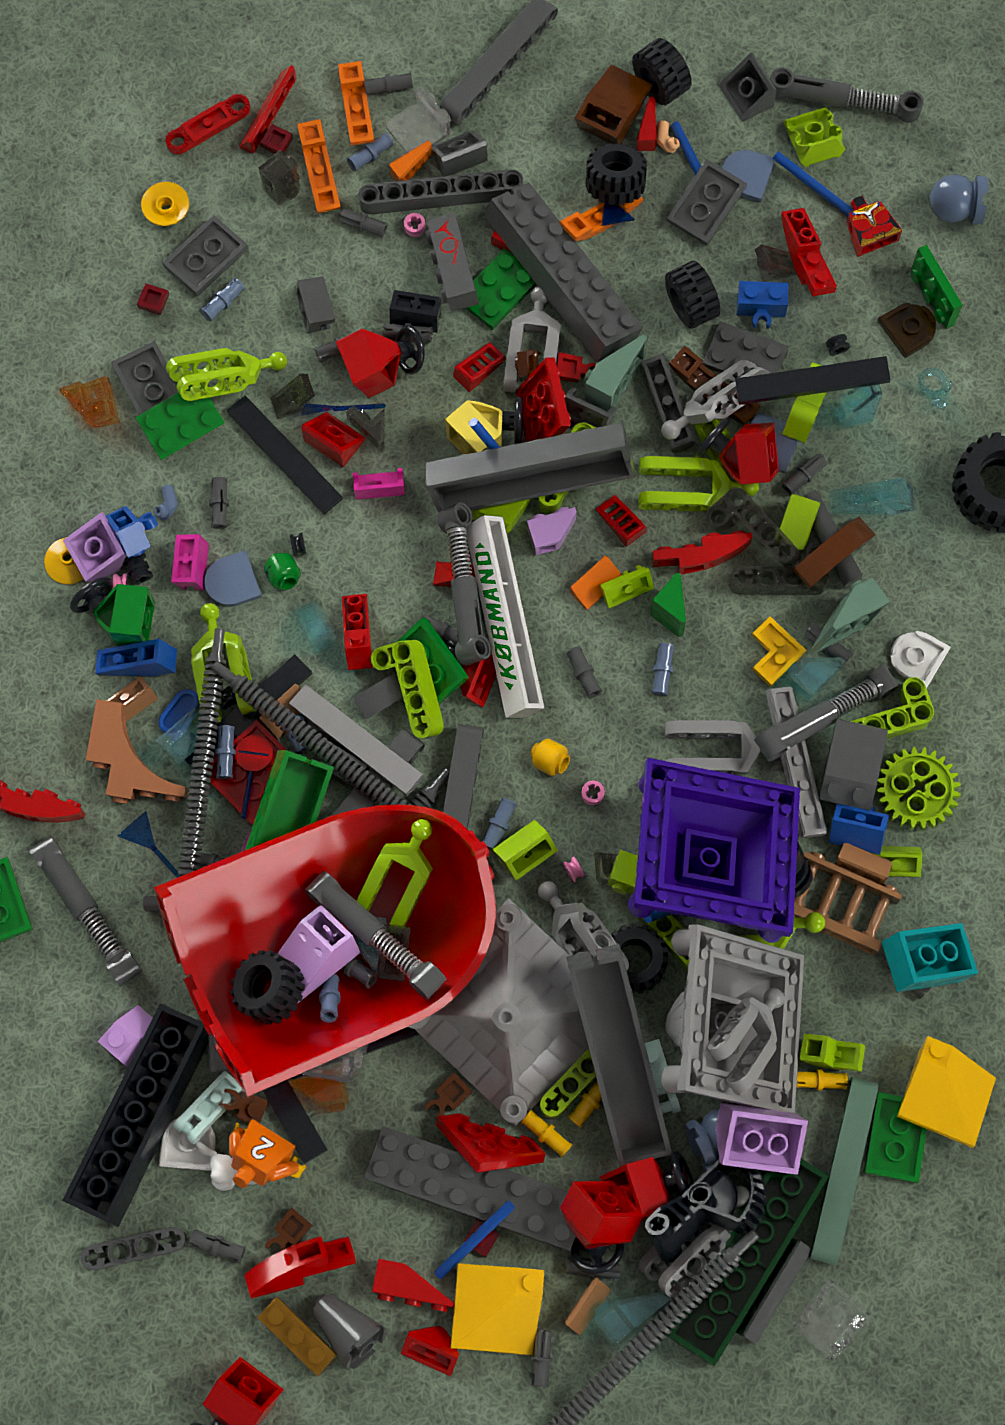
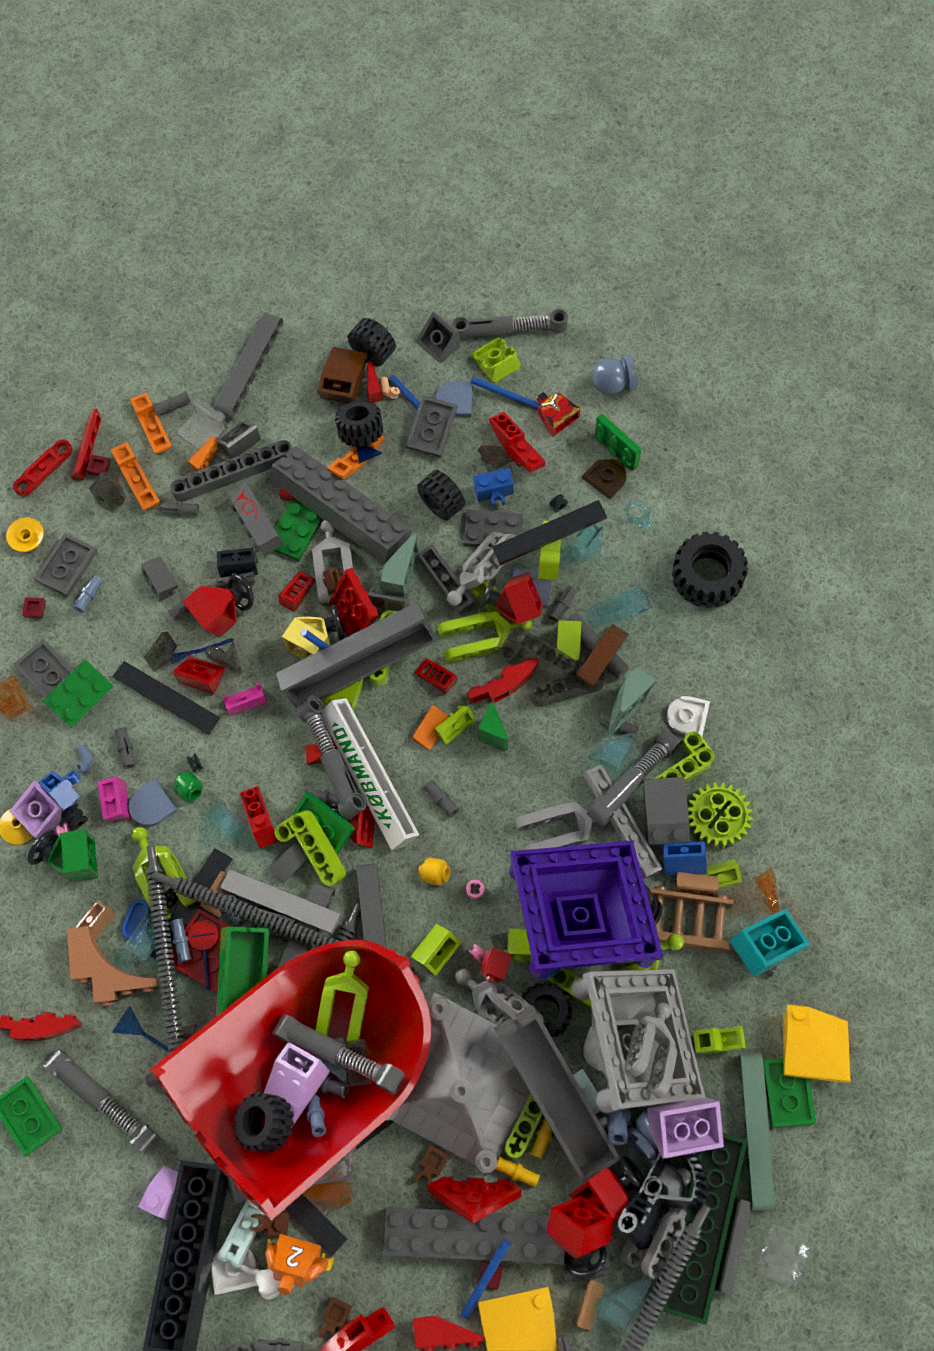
camera: 15 degrees left, 5 degrees down
(137, 659) = (92, 887): blue slope -> none
(238, 364) = (112, 638): lime piece -> none
(370, 151) = (171, 455): sand blue pin -> none
(421, 227) = (222, 495): bright pink bush -> none
(499, 823) = (409, 934): sand blue pin -> none
(550, 530) = (385, 698): lavender slope -> none
(572, 367) = (366, 572): red plate -> none
(589, 887) = (495, 965): none -> red slope
(663, 669) = (500, 779): sand blue pin -> none
(680, 1112) = (618, 1125): none -> sand blue piece
(695, 374) = (458, 552): reddish brown slope -> none
(781, 648) = (586, 741): yellow plate -> none
(822, 1080) = (715, 1063): yellow pin -> none
(948, 887) = (767, 884): none -> clear orange slope

